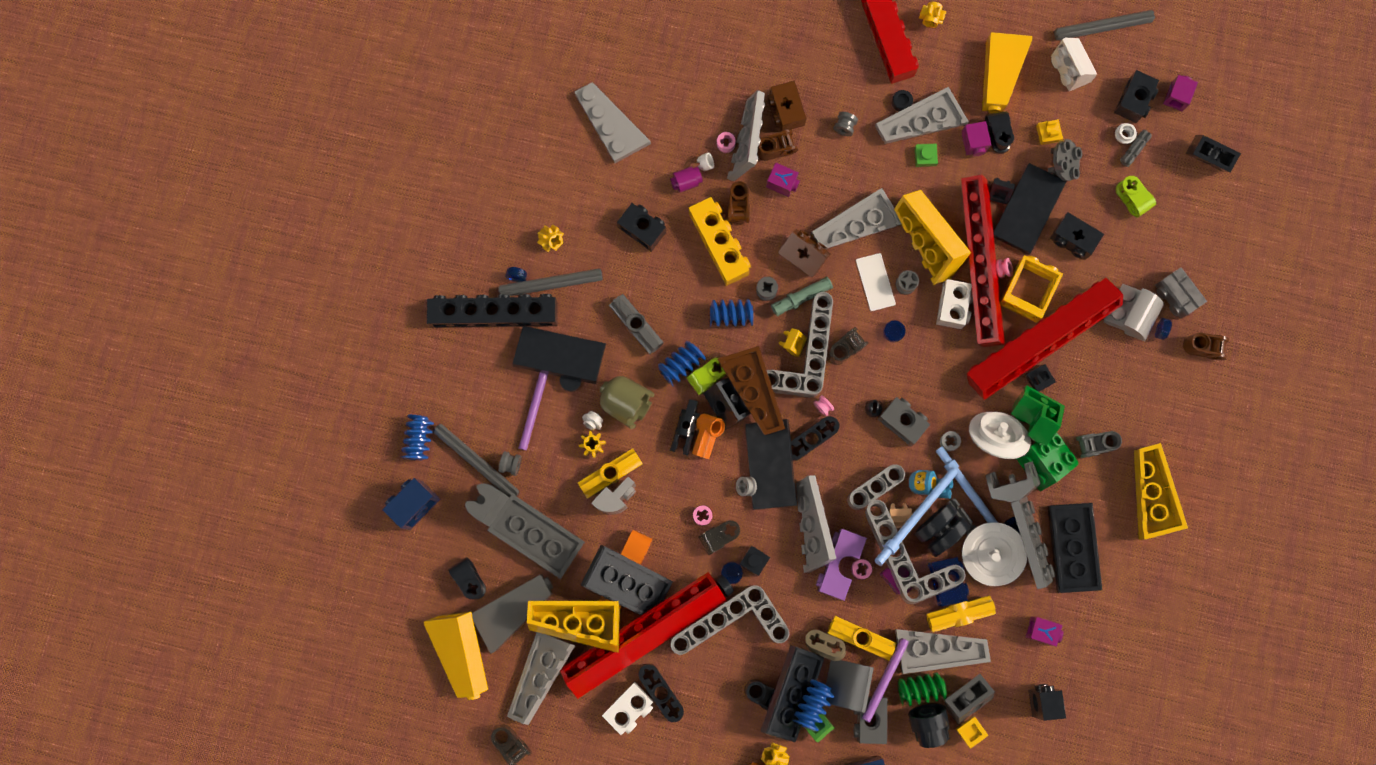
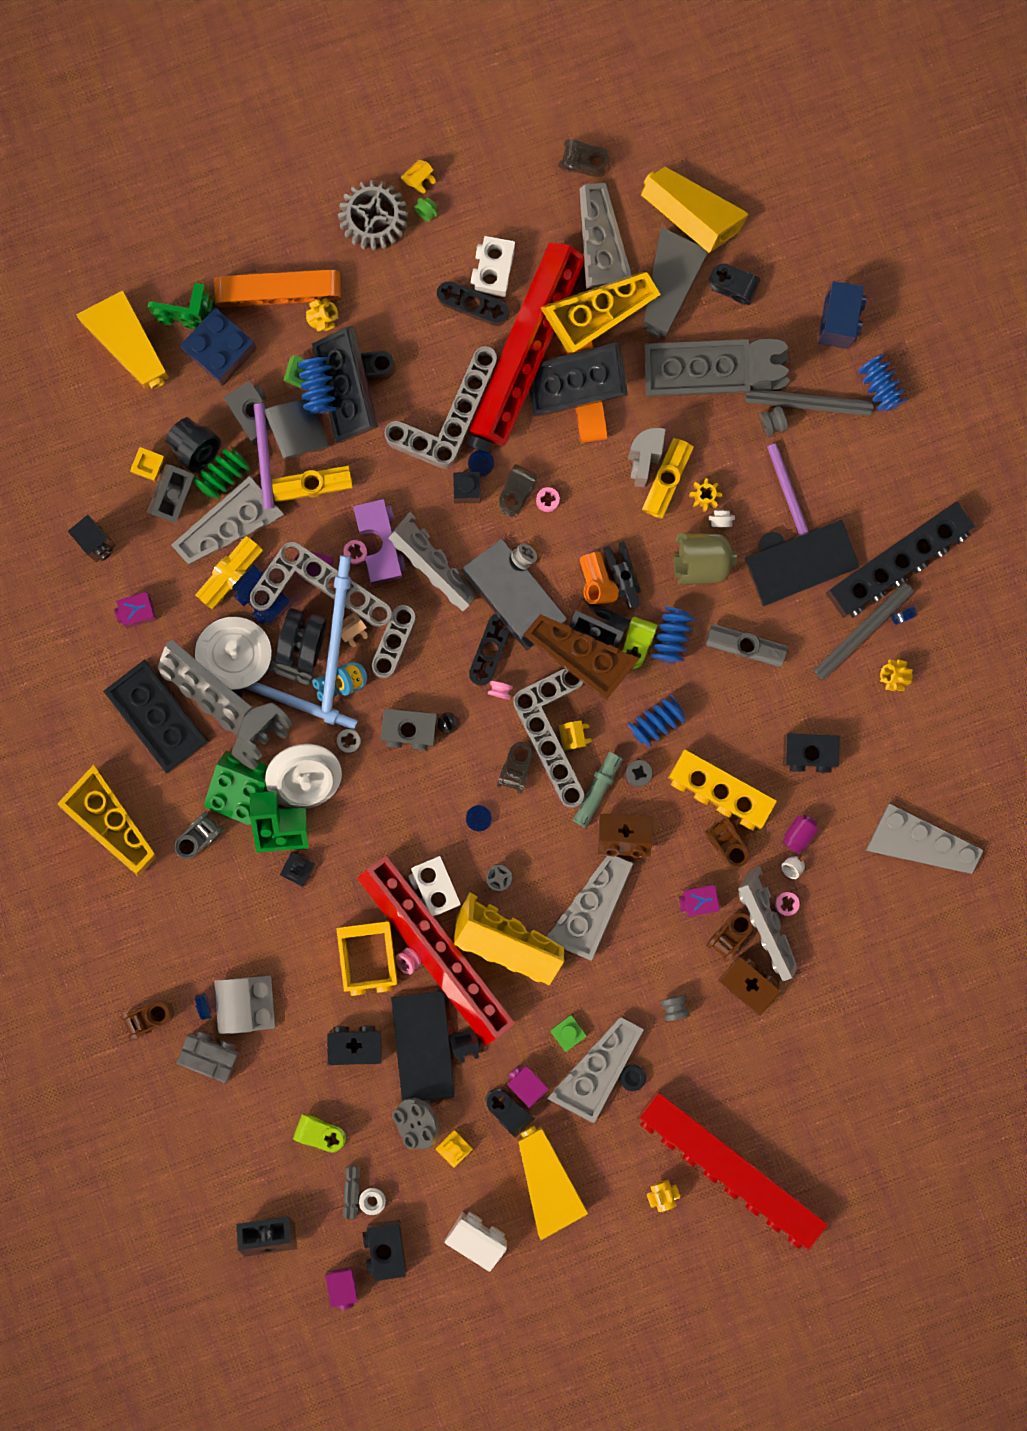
camera: 140 degrees right, 5 degrees up
(827, 640) = (343, 459): dark tan beam -> none
(875, 282) = (531, 859): white sticker -> none
(1044, 338) = (320, 910): red brick -> none
(1104, 25) = (470, 1314): dark grey axle -> none

